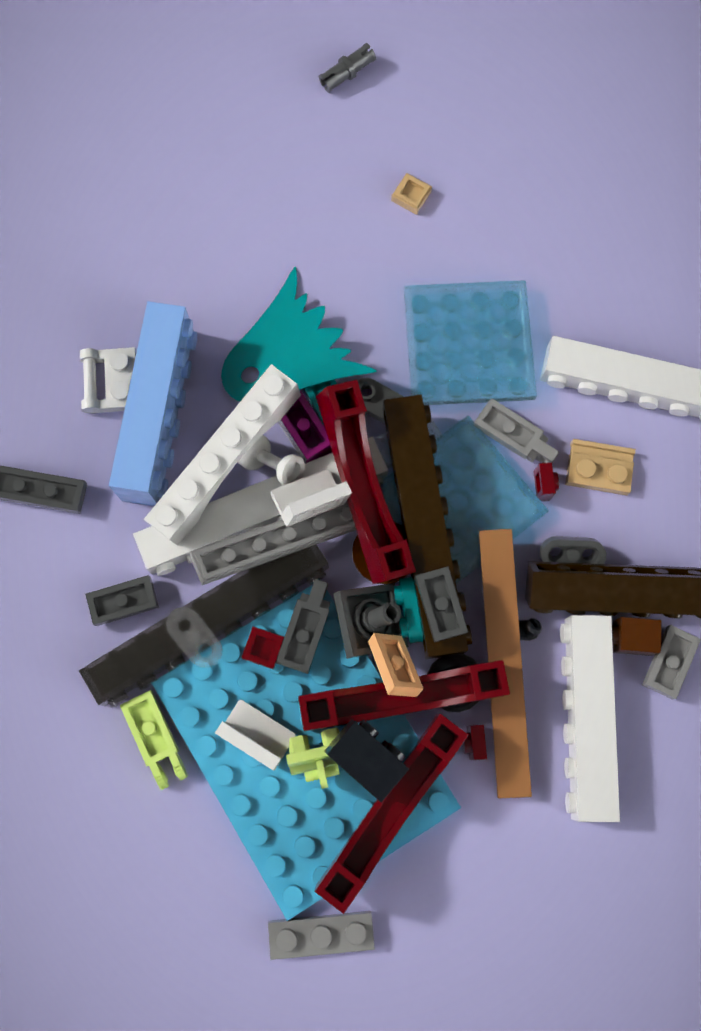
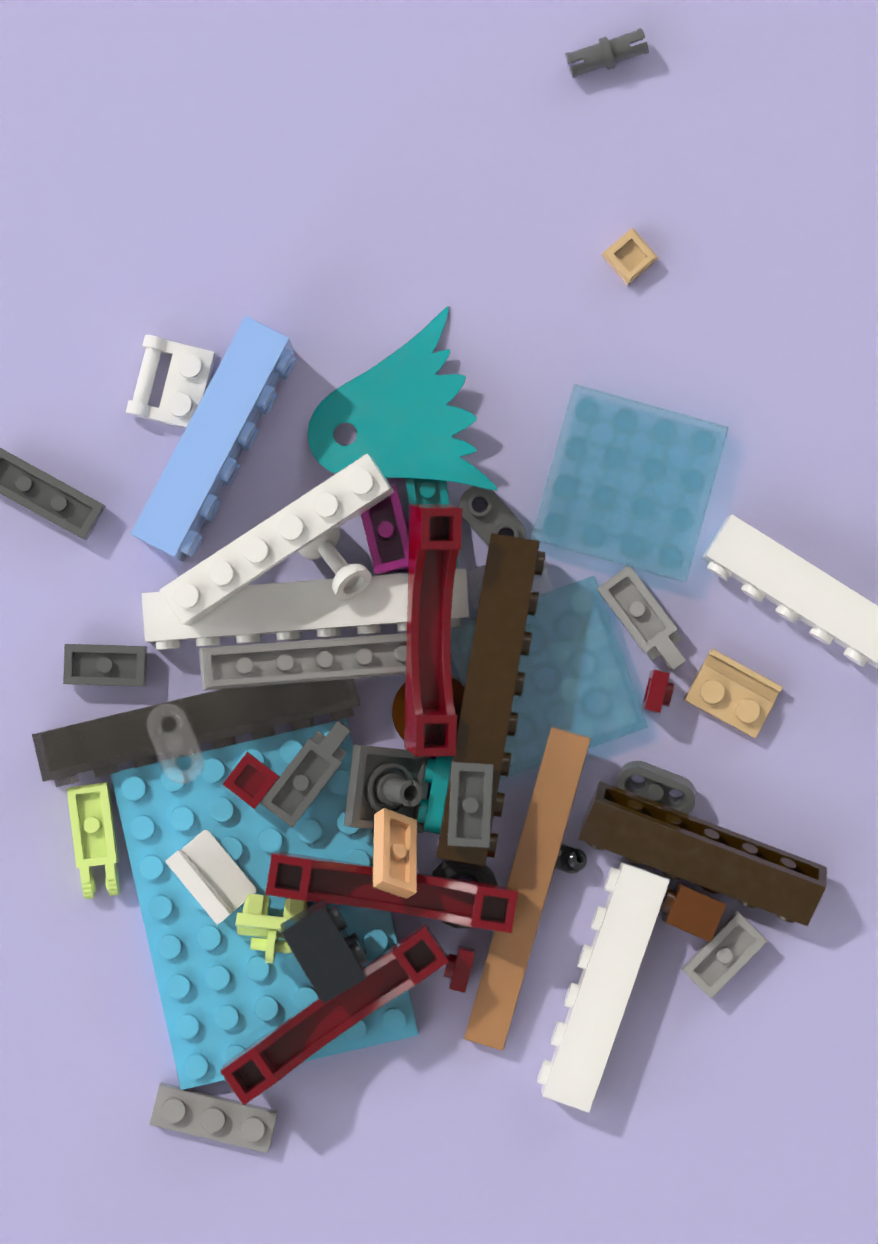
camera: 20 degrees right, 10 degrees up
(309, 497) = (362, 621): white panel -> none

